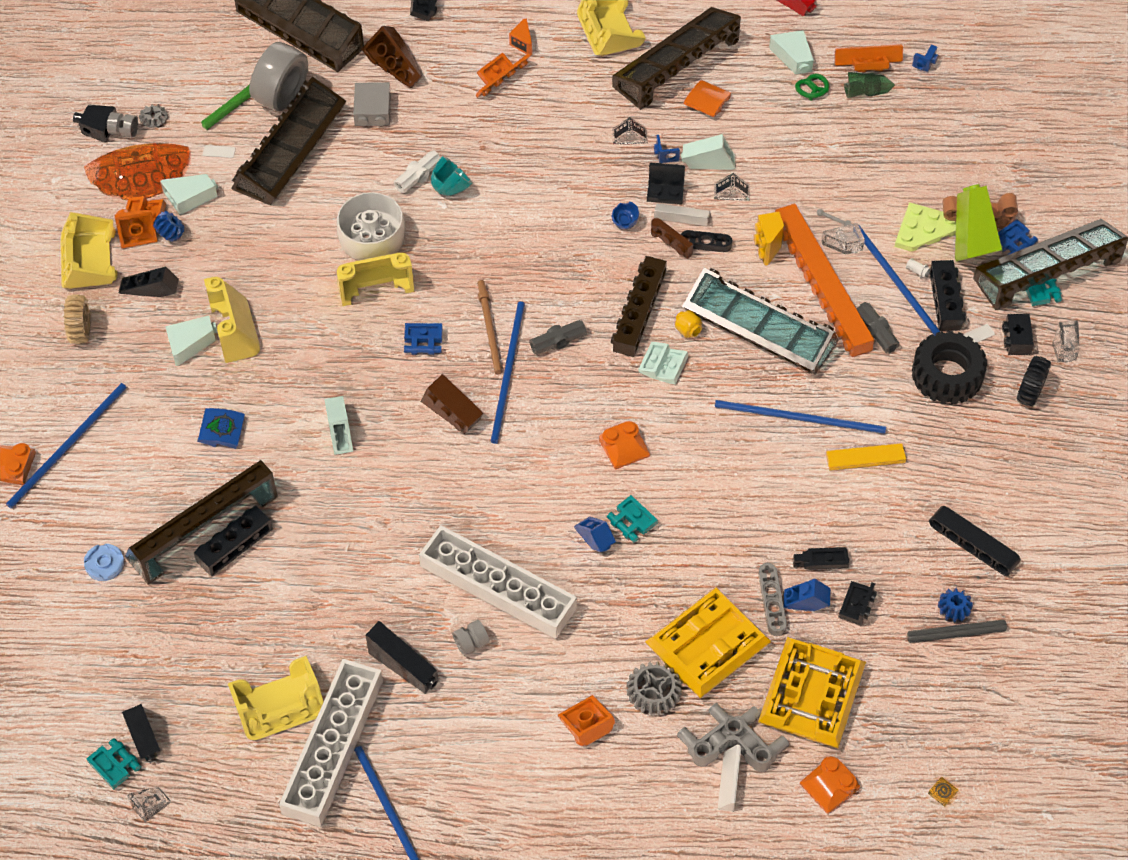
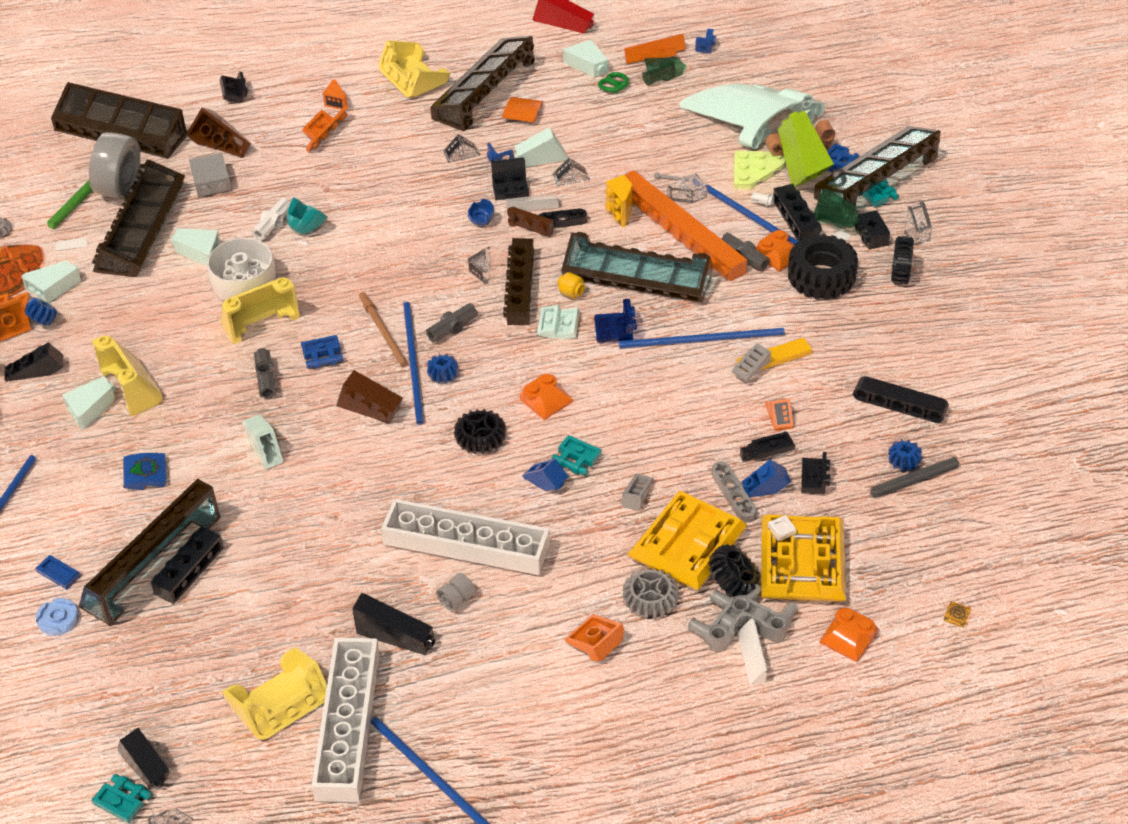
camera: 15 degrees left, 10 degrees down
(116, 515) = (58, 572): none -> blue tile
(337, 183) = (195, 243): none -> light aqua slope
(360, 357) = (264, 373): none -> dark grey piece
(533, 387) = (442, 368): none -> blue gear
(547, 475) = (475, 432): none -> black gear
(607, 276) = (480, 265): none -> clear slope
(674, 584) = (635, 493): none -> light grey slope
(718, 381) = (616, 326): none -> clear blue bracket
(734, 690) = (733, 570): none -> black gear
(799, 657) = (782, 528): none -> white tile
(848, 523) = (780, 413): none -> orange slope
(850, 458) = (758, 353): none -> light grey slope
(910, 332) = (777, 248): none -> orange slope
(944, 155) = (750, 107): none -> light aqua panel
(986, 303) = (836, 210): none -> clear green panel

